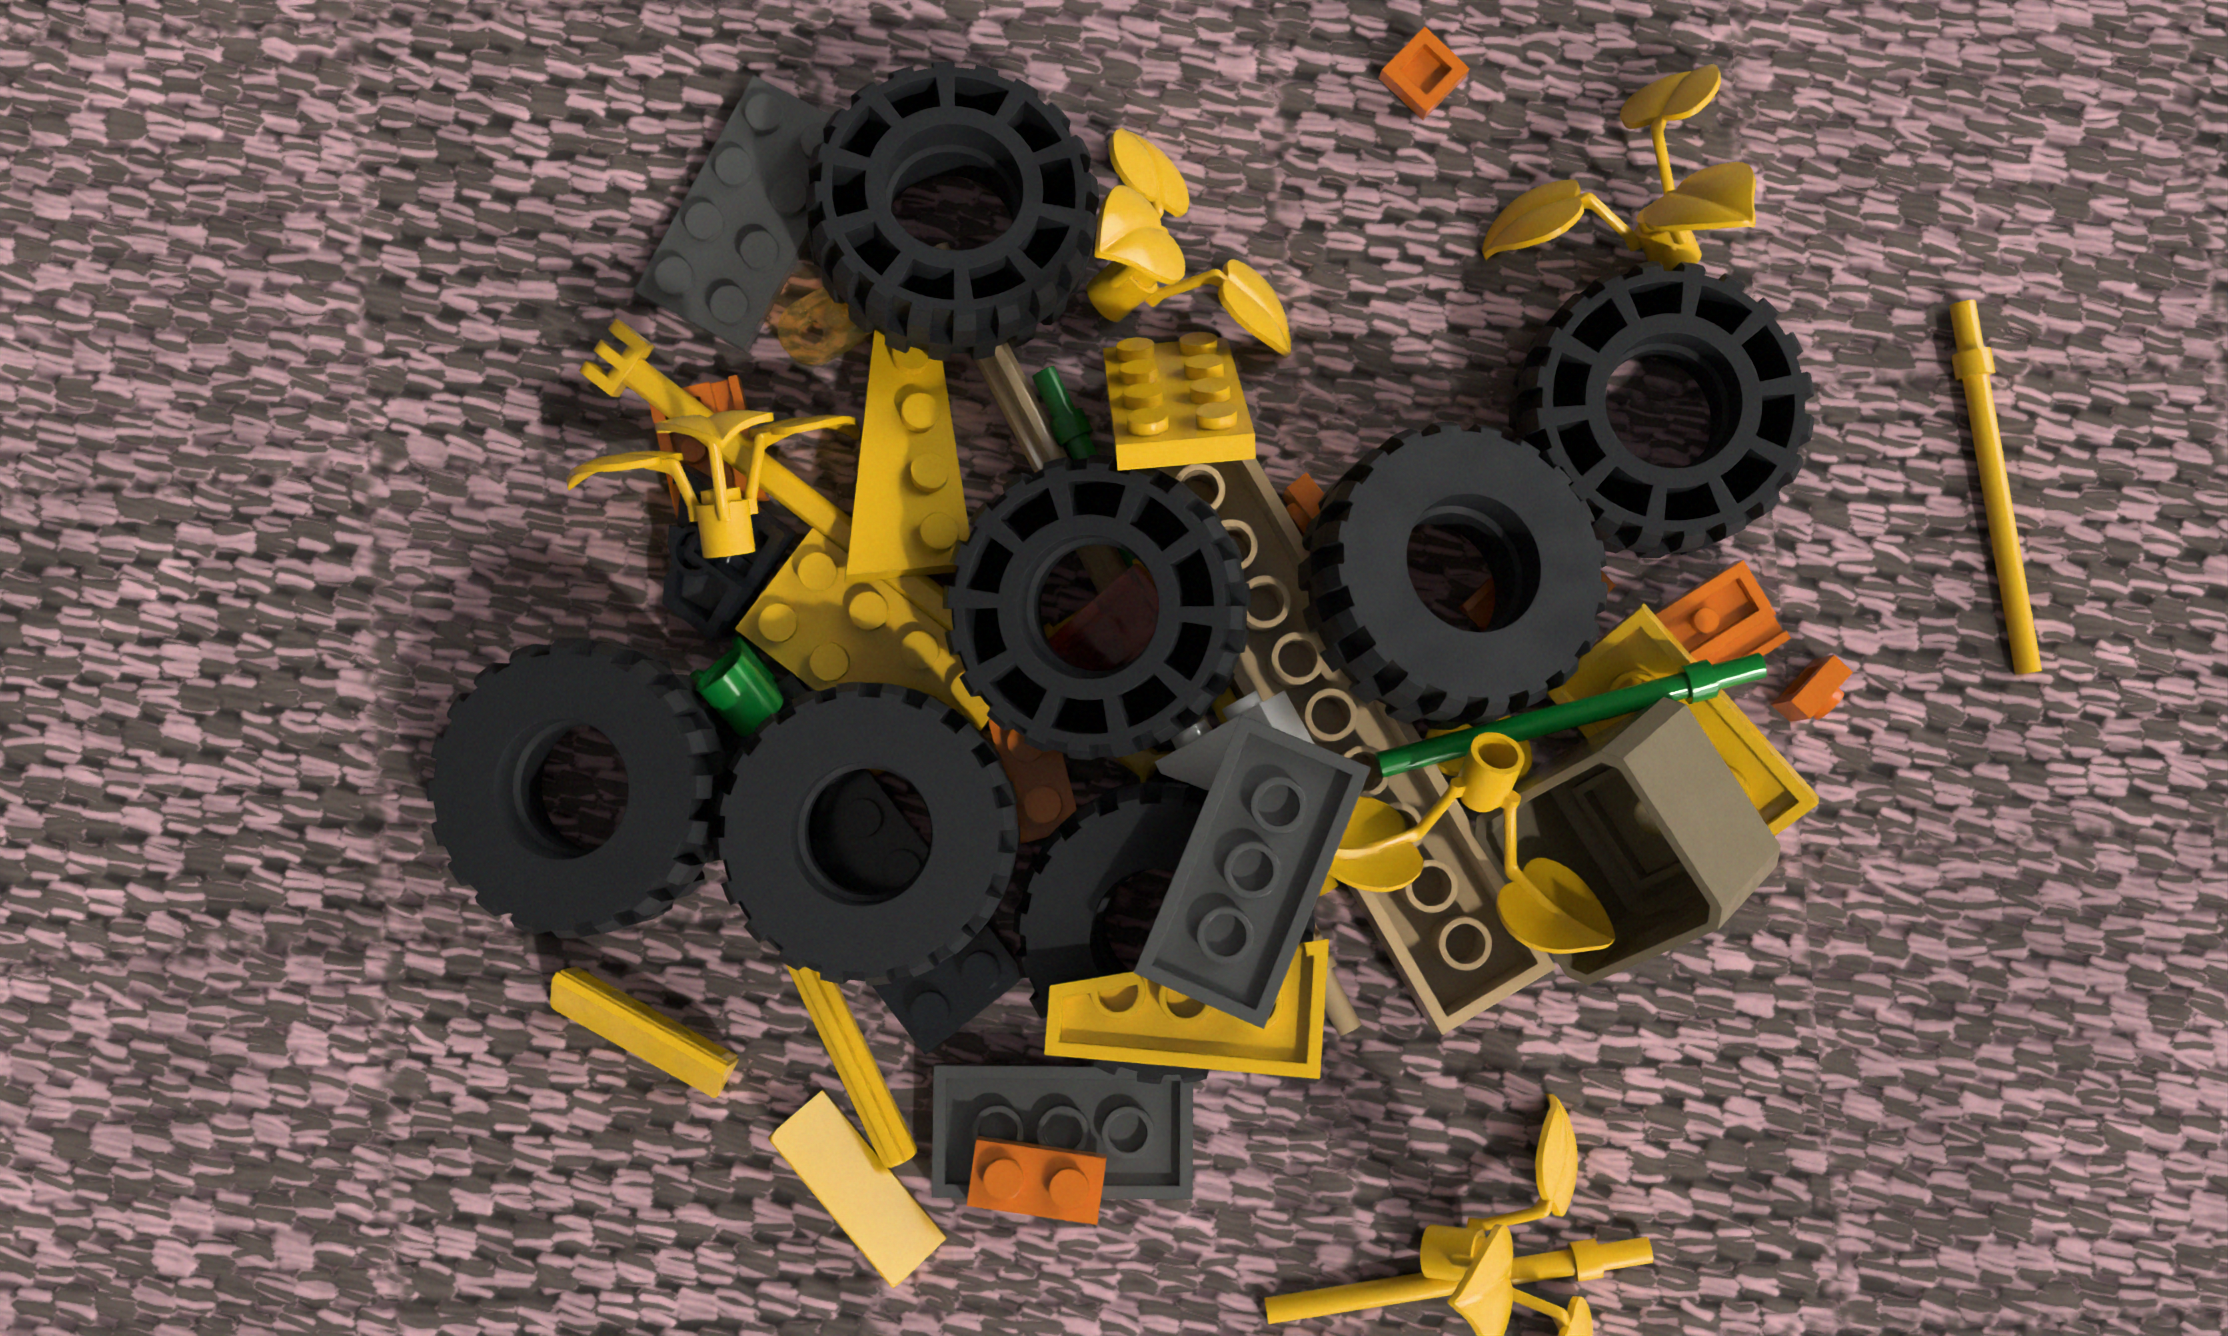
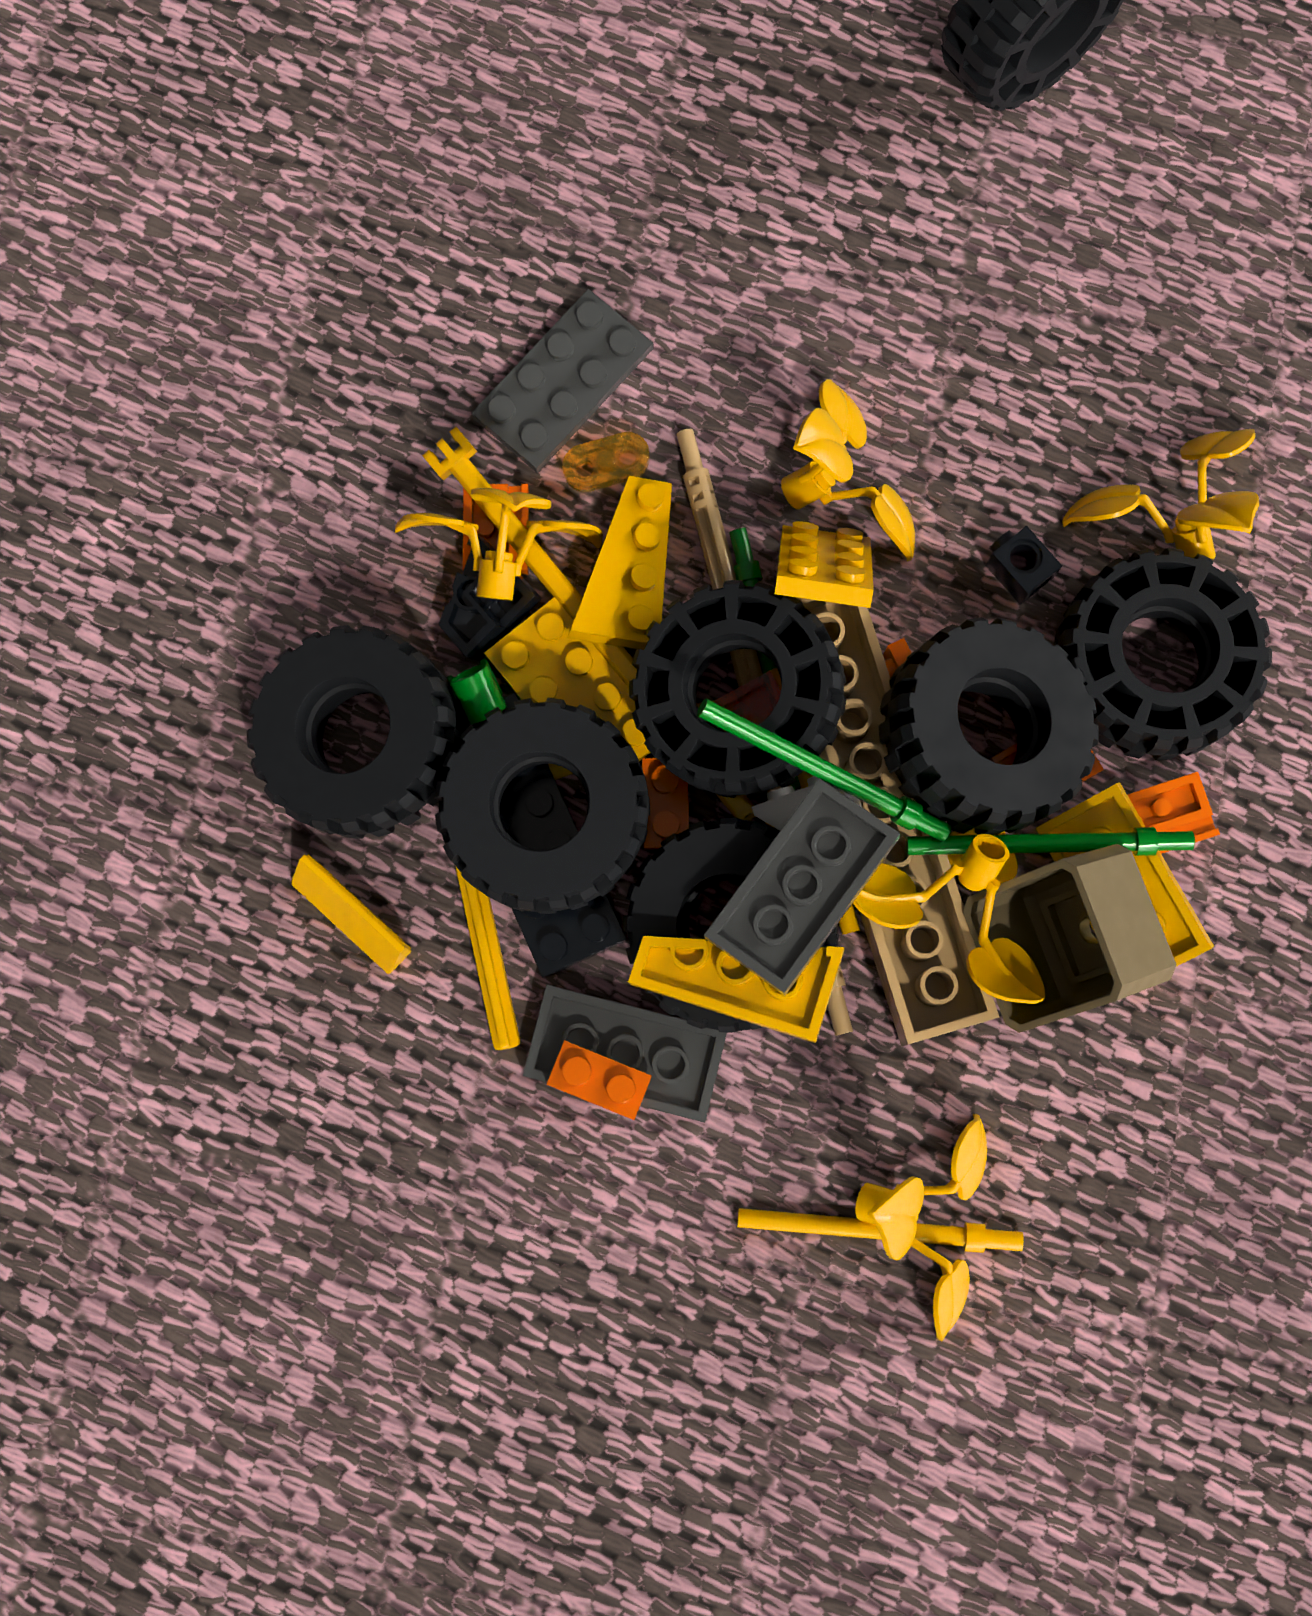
camera: 20 degrees right, 5 degrees down
(857, 1188) = (472, 1058): yellow slope -> none
(969, 128) = (714, 351): black tyre -> none
(1363, 724) = (902, 810): none -> green bar
(1424, 73) = (1049, 390): orange plate -> none
(1468, 318) = (1018, 582): none -> black brick
(1814, 690) = (1228, 875): orange plate -> none

